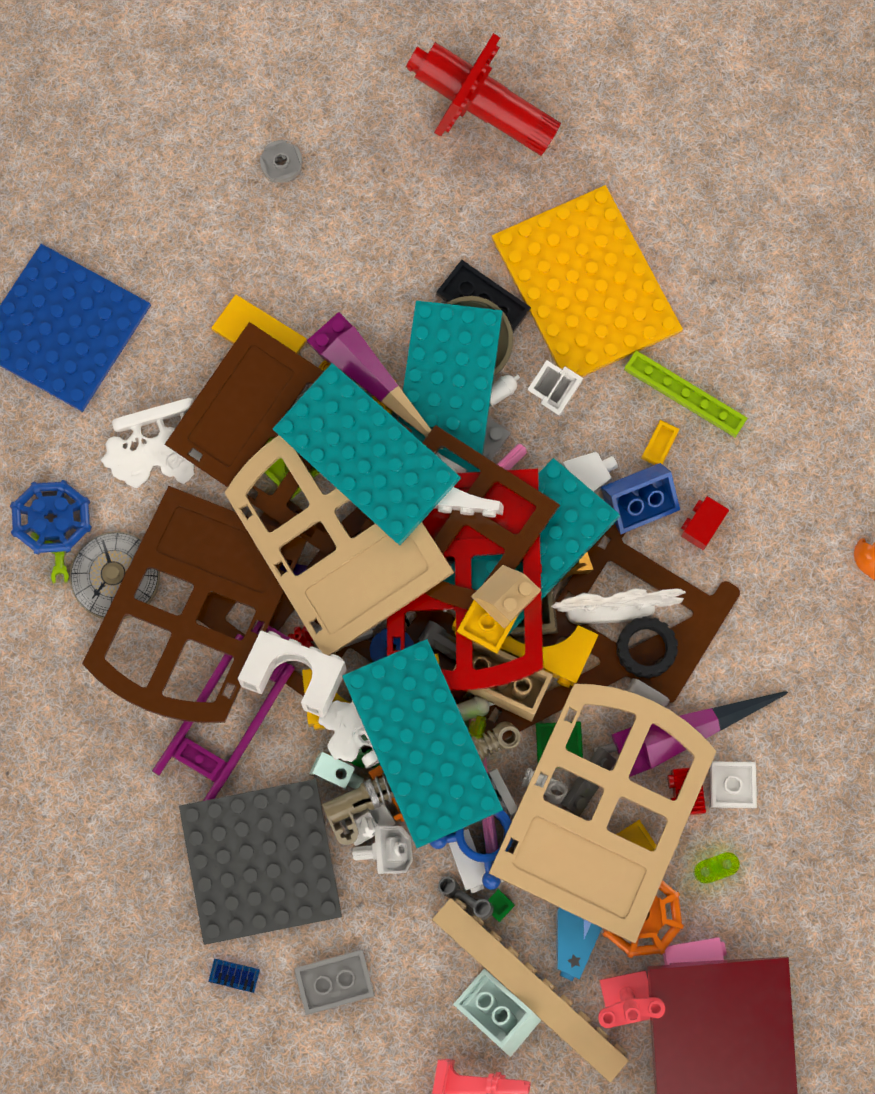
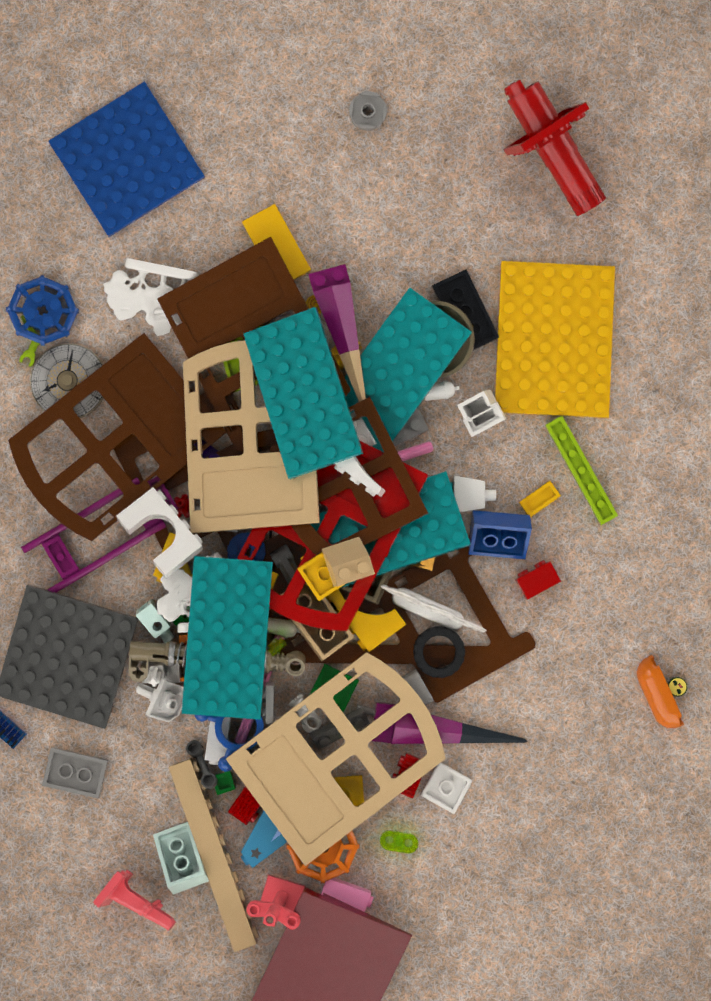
camera: 25 degrees right, 10 degrees up
(536, 916) = (245, 807): none -> red brick

